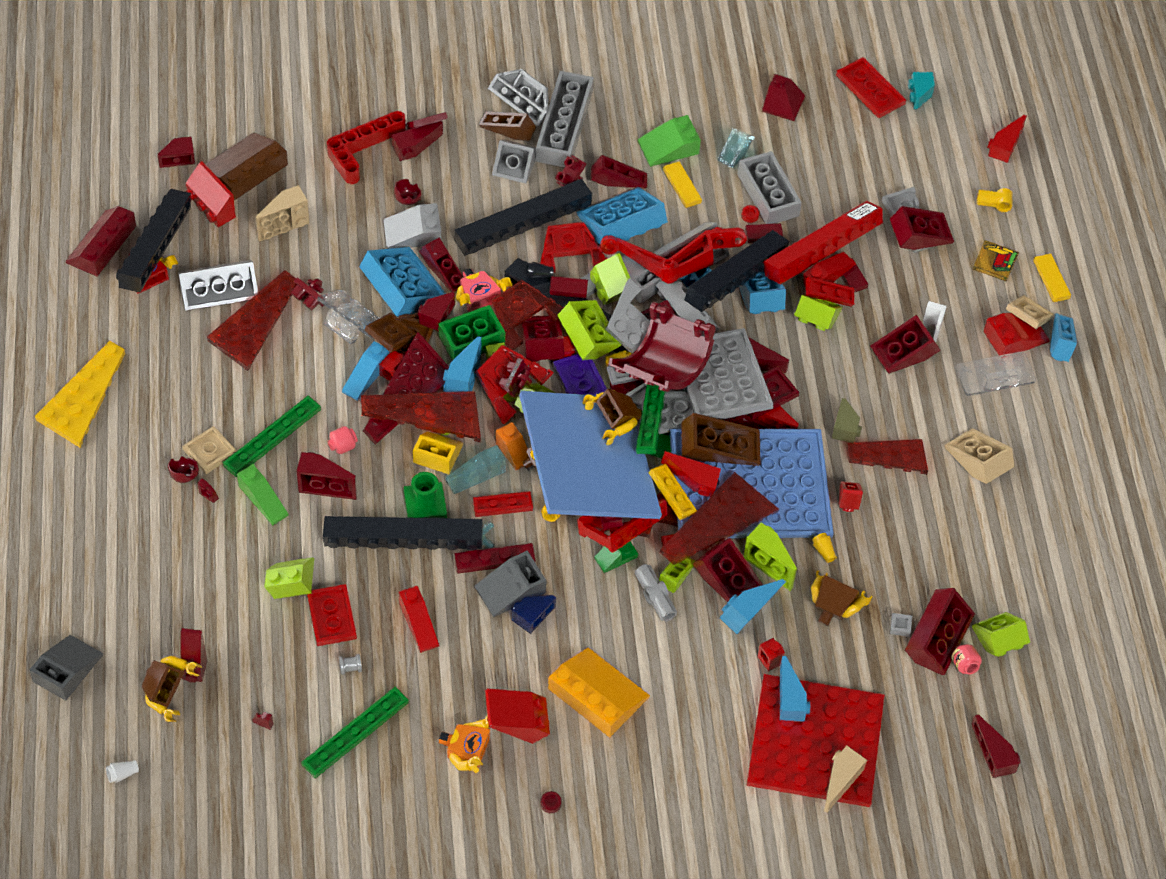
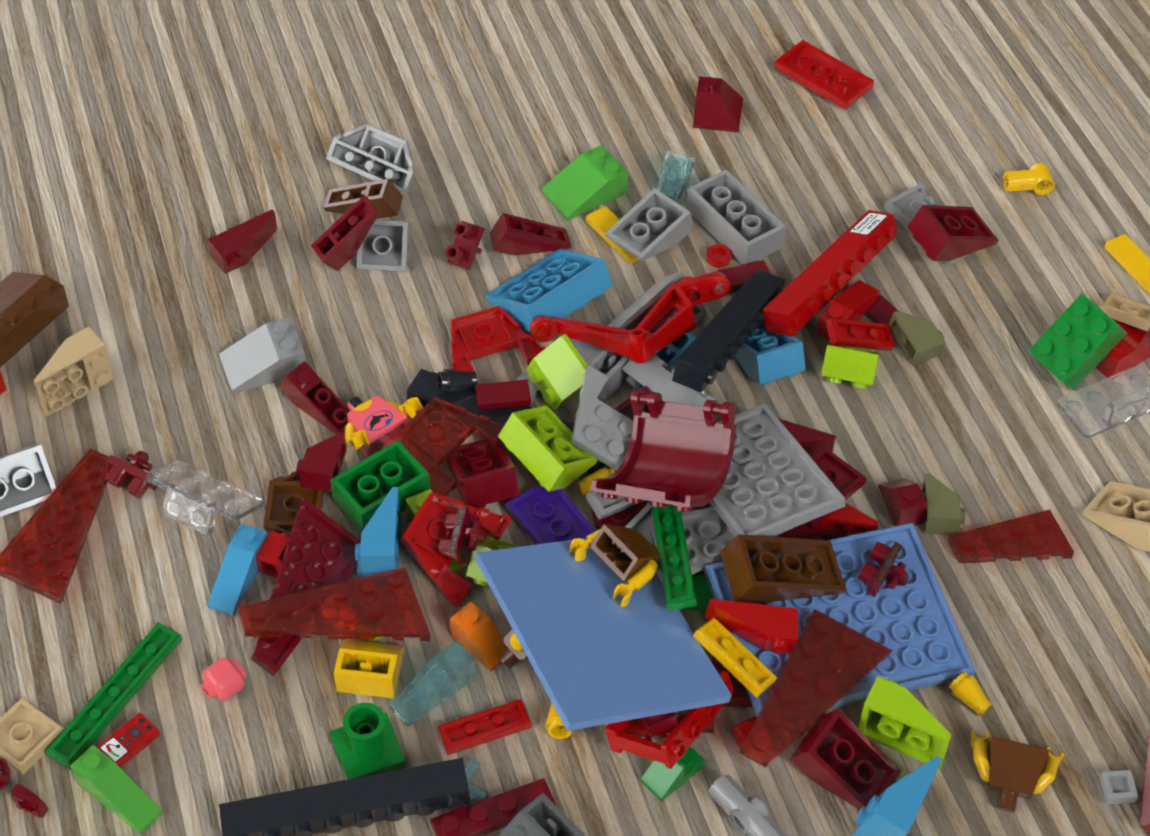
camera: 10 degrees left, 5 degrees down
(276, 466) = (129, 740): none -> red tile
(325, 478) = (207, 743): dark red slope -> none
(359, 138) = (141, 267): red beam -> none
(390, 332) = (262, 506): reddish brown tile -> none
(400, 279) = (260, 430): dark azure slope -> none
(406, 192) = (244, 312): dark red hair -> none
(426, 120) = (251, 212): dark red tile -> none
(488, 150) = (346, 235): none -> dark red slope
(523, 217) = (412, 315): black brick -> none
(564, 118) = (438, 179): light grey brick -> none
(569, 348) = (524, 478): red plate -> none
(669, 573) = (769, 793): lime slope -> none
(706, 184) = (651, 226): none -> light grey slope
(793, 448) = (894, 574): none -> dark red hips
(823, 414) = (904, 501): none -> dark red slope
(850, 496) = (984, 610): red slope -> none
(871, 301) = (916, 337): none -> olive slope
(905, 346) = (983, 387): dark red slope -> none
(921, 87) = (887, 63): teal slope -> none
(934, 318) = (1011, 344): white panel -> none
(980, 326) = (1077, 341): none -> green brick
(995, 260) = (1057, 256): tile -> none
(1006, 139) = (1016, 107): red slope -> none

